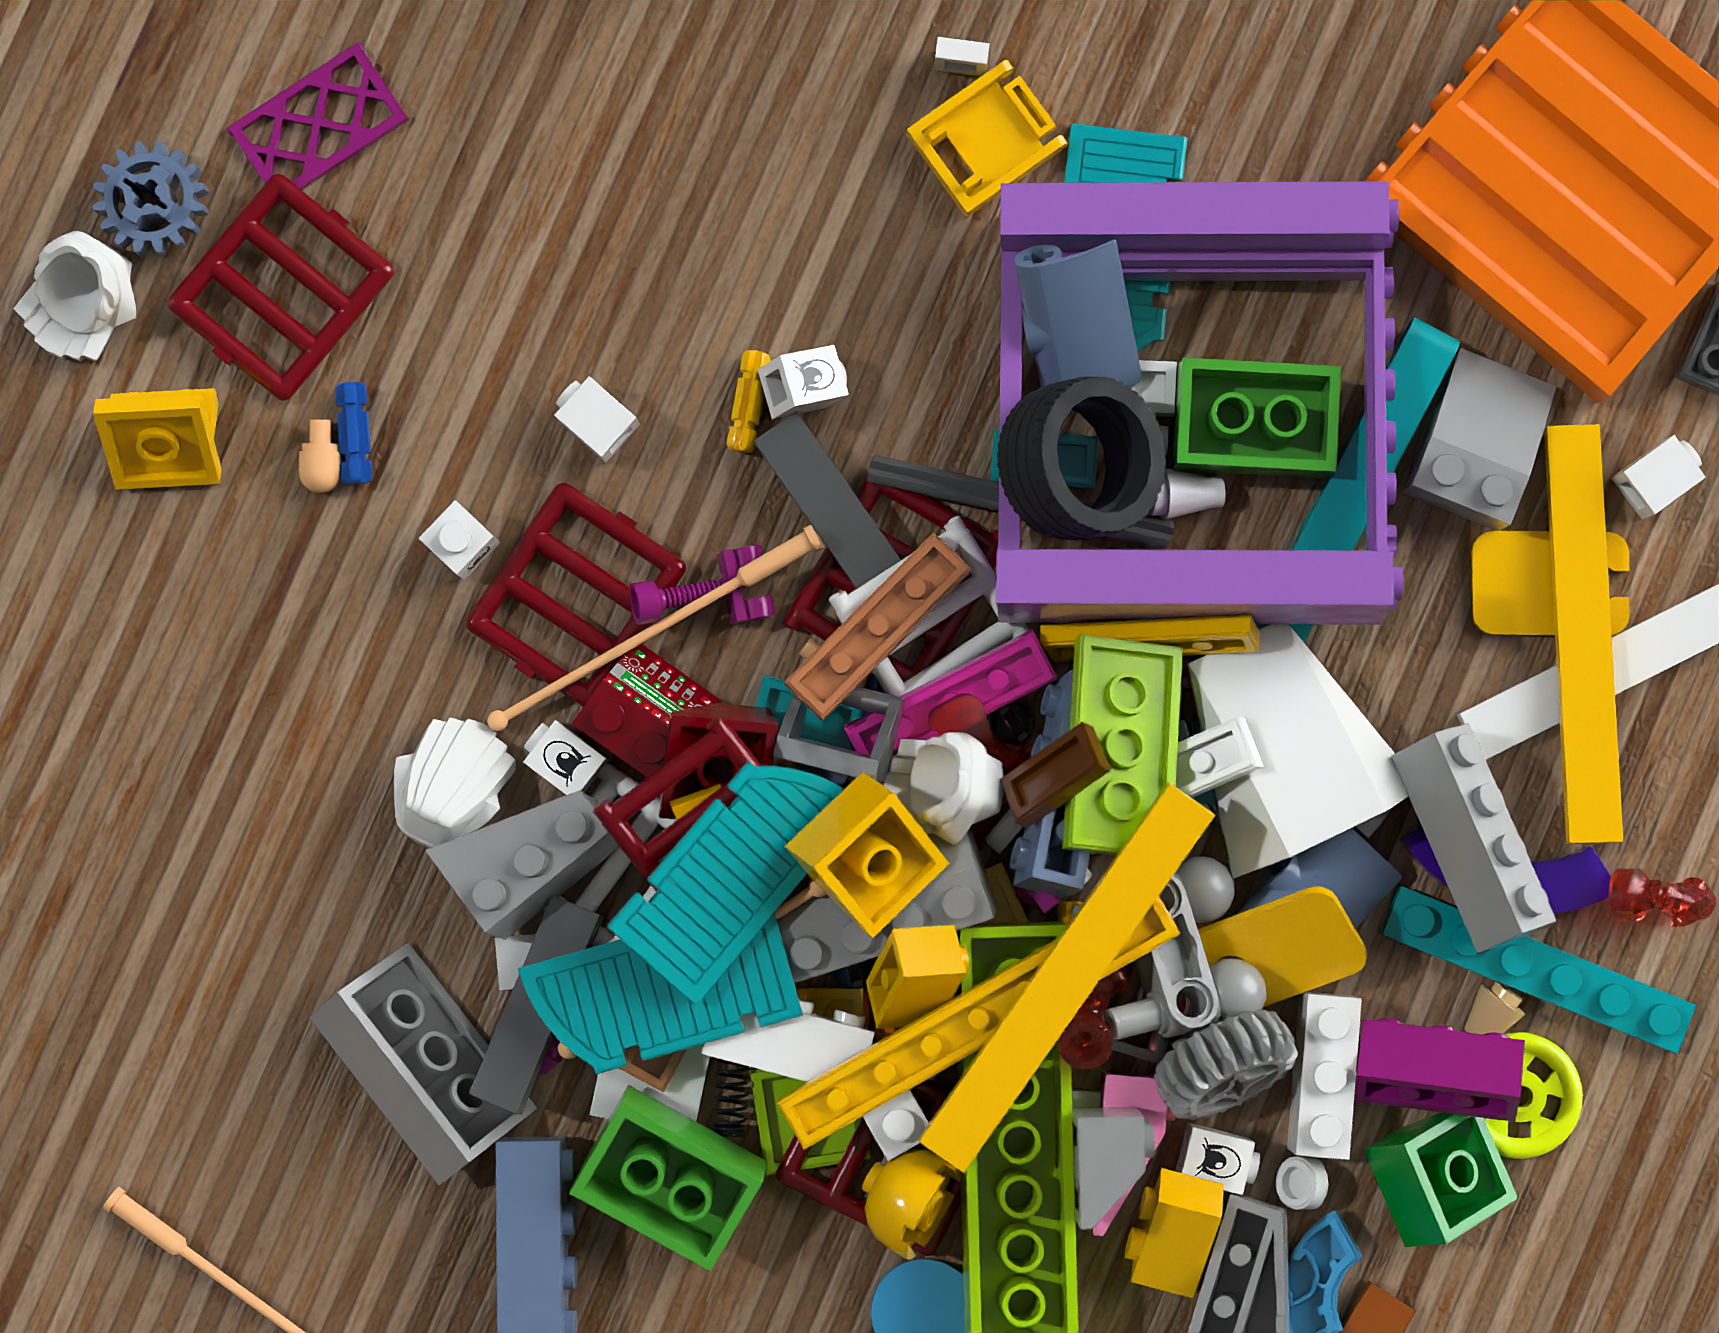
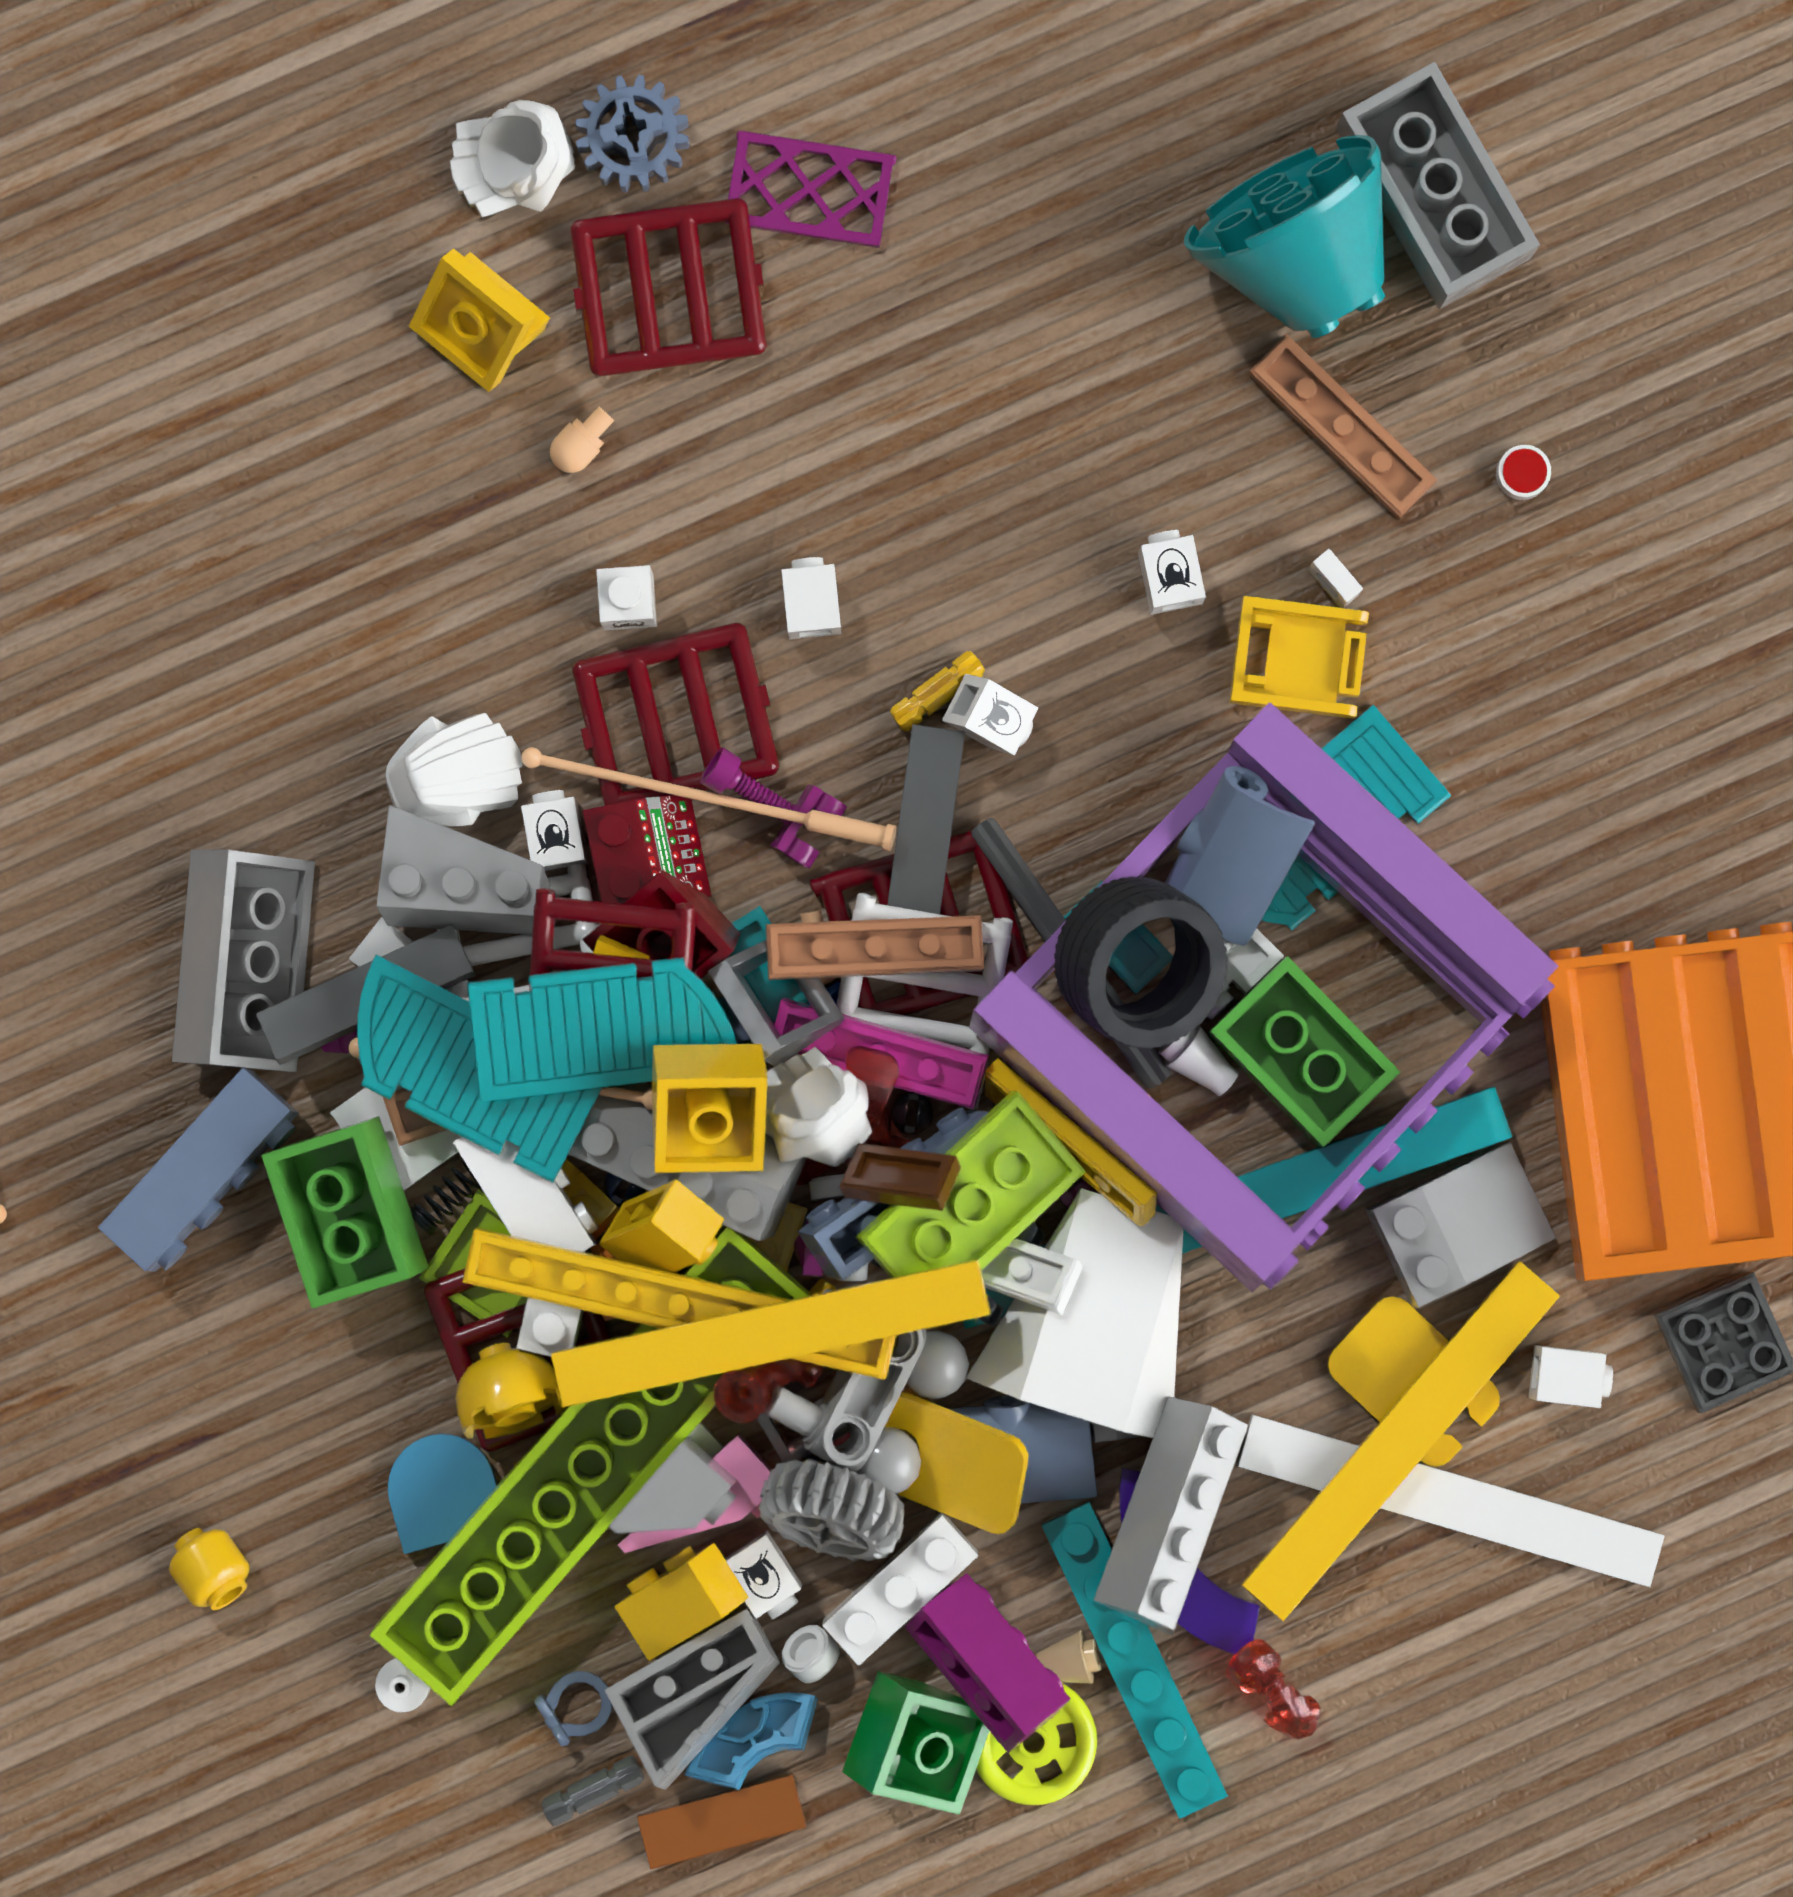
camera: 45 degrees right, 0 degrees up
(353, 433) = (622, 446): blue axle -> none
(838, 160) = (1171, 572): none -> white brick

